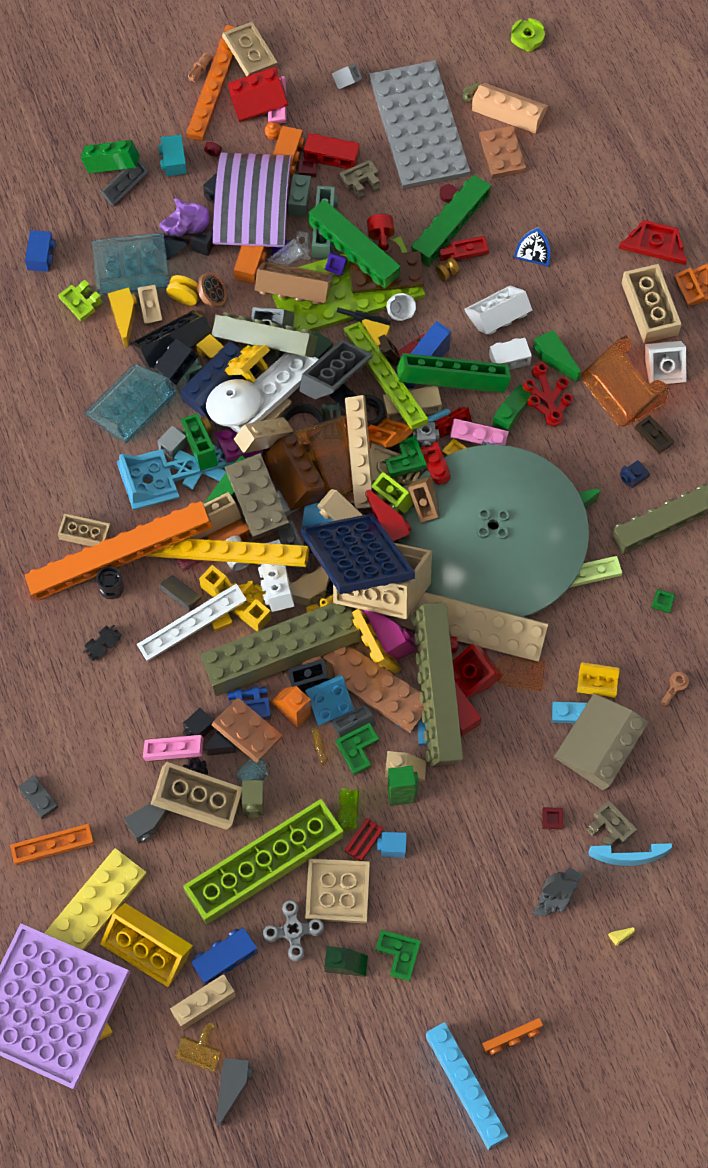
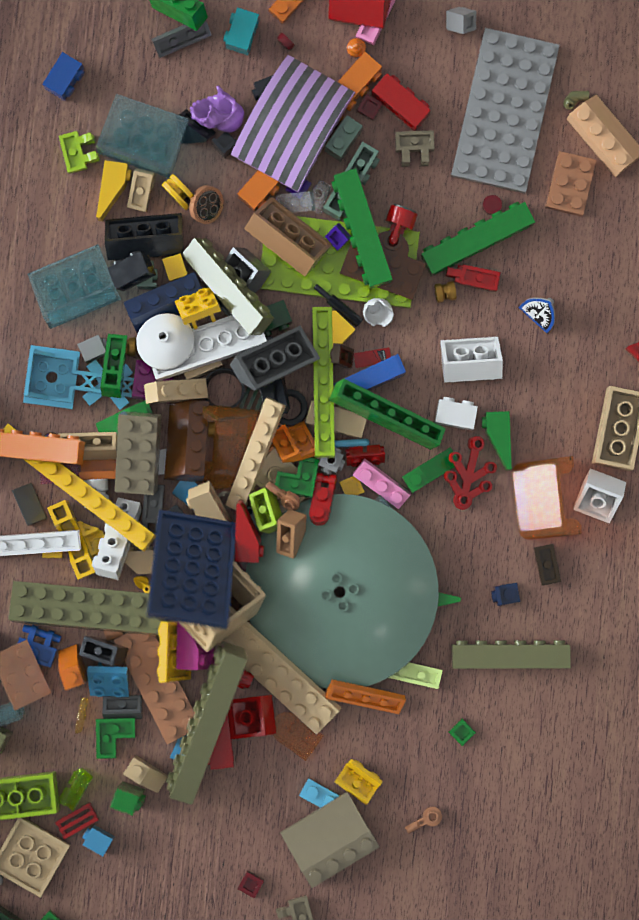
camera: 25 degrees right, 20 degrees up
(407, 474) = (288, 499): none -> nougat plate
(563, 605) = (365, 696): none -> orange plate

